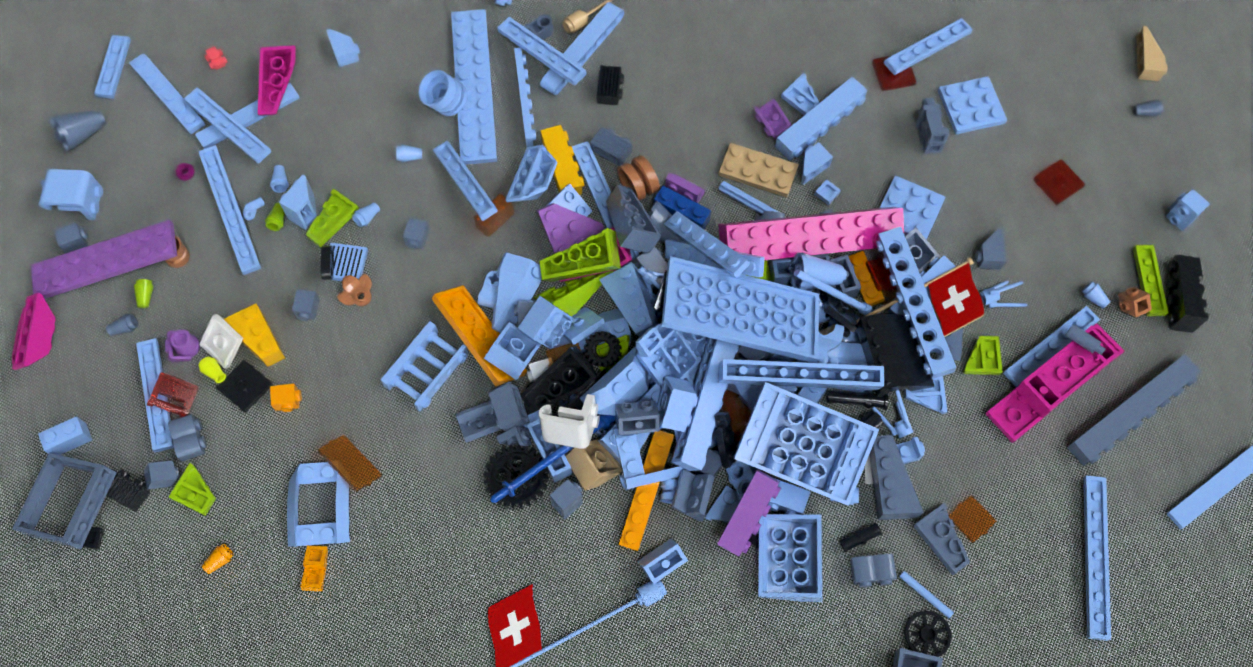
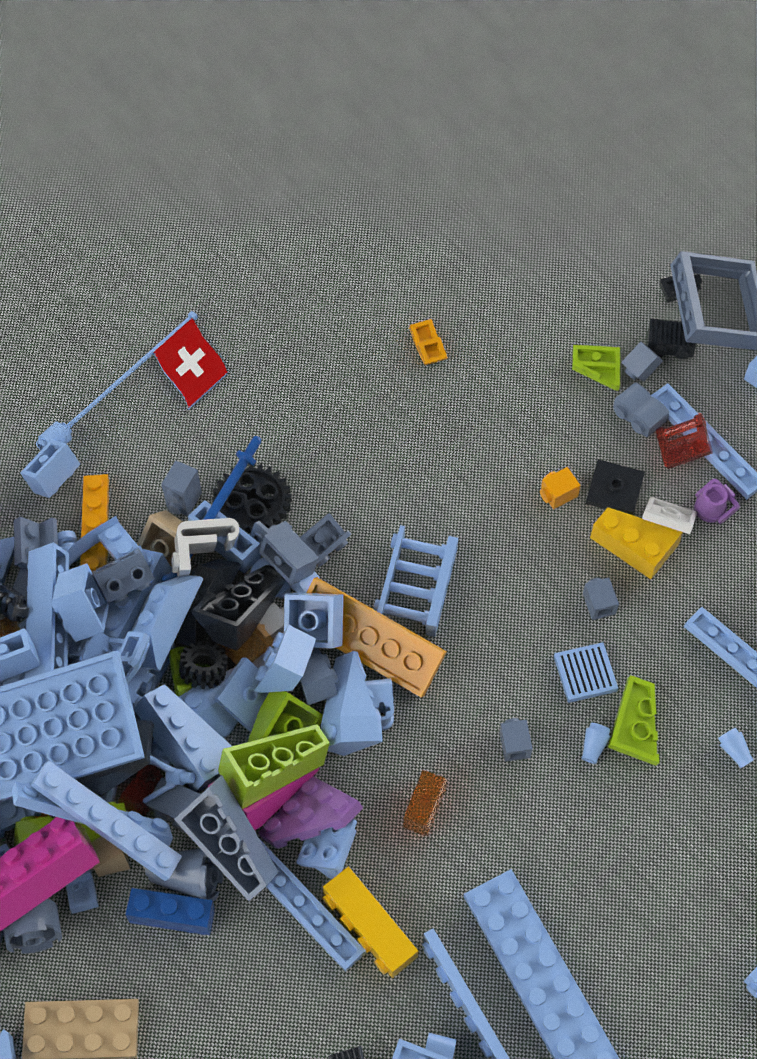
camera: 160 degrees right, 5 degrees down
(211, 368) = (661, 486): neon yellow cone -> none
(220, 556) = (531, 316): light orange cone -> none
(251, 208) = (746, 695): light blue arm -> none
(275, 218) = (707, 695): lime cone -> none
(299, 203) = (682, 712): light blue slope -> none
(317, 533) = (447, 371): light blue wedge -> none
(327, 262) = (603, 653): black beam -> none
(349, 463) = (446, 448): clear orange piece -> none
(354, 288) = (553, 639): nougat plate -> none
(408, 153) = (588, 852): light blue cone -> none
(442, 93) = (584, 949): light blue wheel -> none
(465, 180) = (487, 832): light blue tile -> none
(532, 175) = (394, 867): light blue wedge -> none
(611, 146) = (308, 977): sand blue brick -> none
(639, 177) = (246, 926): nougat wheel -> none
(684, 187) = (178, 948): medium lavender bracket -> none
(744, 198) = (76, 969): light blue axle -> none

